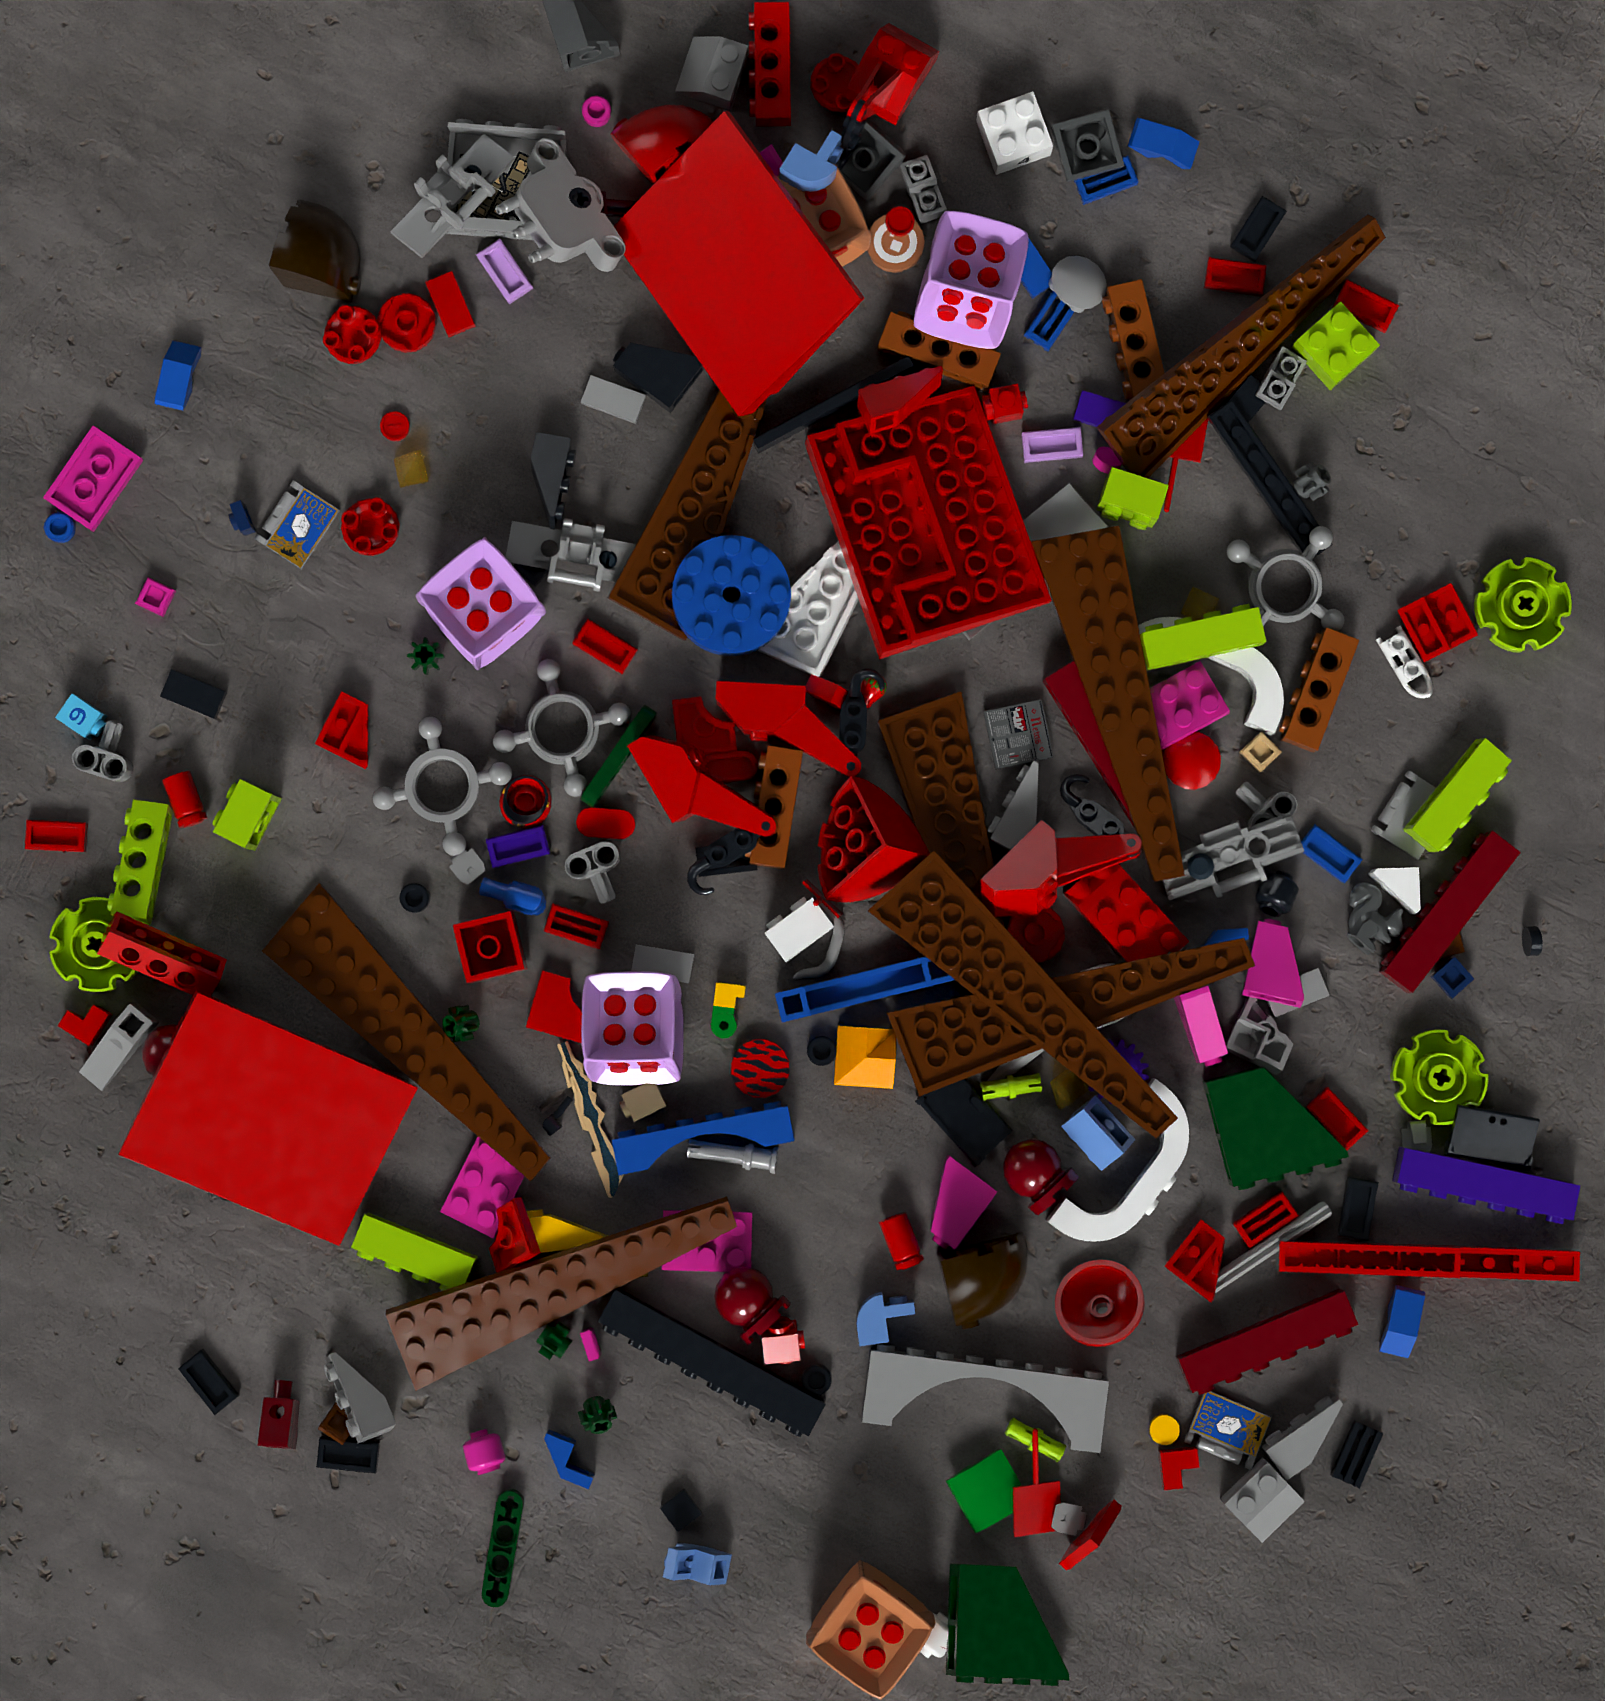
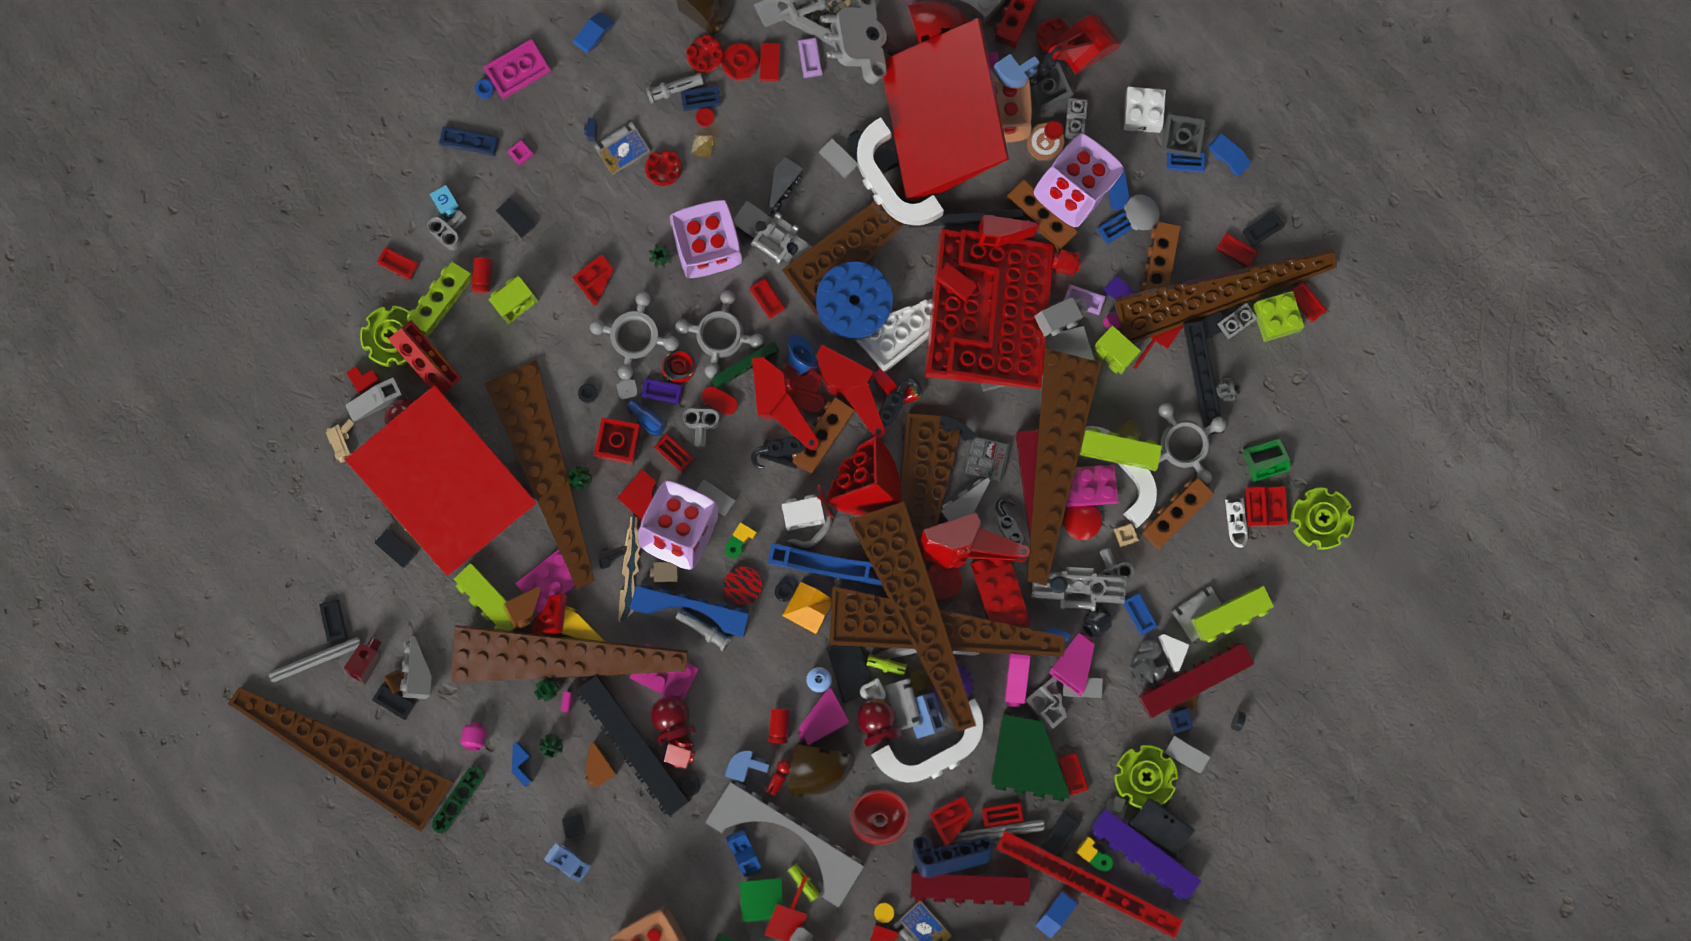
camera: 25 degrees right, 5 degrees down
(73, 613) = (468, 141): none -> dark blue tile
(90, 1123) = (337, 437): none -> tan piece
(209, 1447) = (314, 660): none -> light grey axle
(247, 1240) = (395, 548): none -> black tile
(320, 412) = (665, 93): none -> light grey pin
(361, 424) = (684, 94): none -> dark blue tile
(383, 1566) = (386, 779): none -> reddish brown wing
(468, 1244) = (521, 609): none -> dark orange slope
(677, 1413) = (598, 767): none -> dark orange slope
(691, 705) = (801, 354): none -> blue piece
(703, 423) = (907, 213): none -> white arch
(863, 504) = (956, 282): none -> red tile
(916, 1151) = (825, 675): none -> light blue head
(933, 1437) = (743, 853): none -> blue slope
(934, 1296) = (783, 768): none -> red pin
(949, 710) = (952, 425): none -> black slope
(1009, 1131) = (873, 690): none -> white tile
(1031, 485) = (1060, 316): none -> light grey brick
(1060, 1131) = (903, 703): none -> light grey piece
(1255, 1285) = (950, 858): none -> dark blue beam
(1416, 567) = (1268, 467): none -> green tile
(1425, 1221) = (1095, 858): none -> leg
(1483, 1020) = (1187, 755): none -> light grey slope

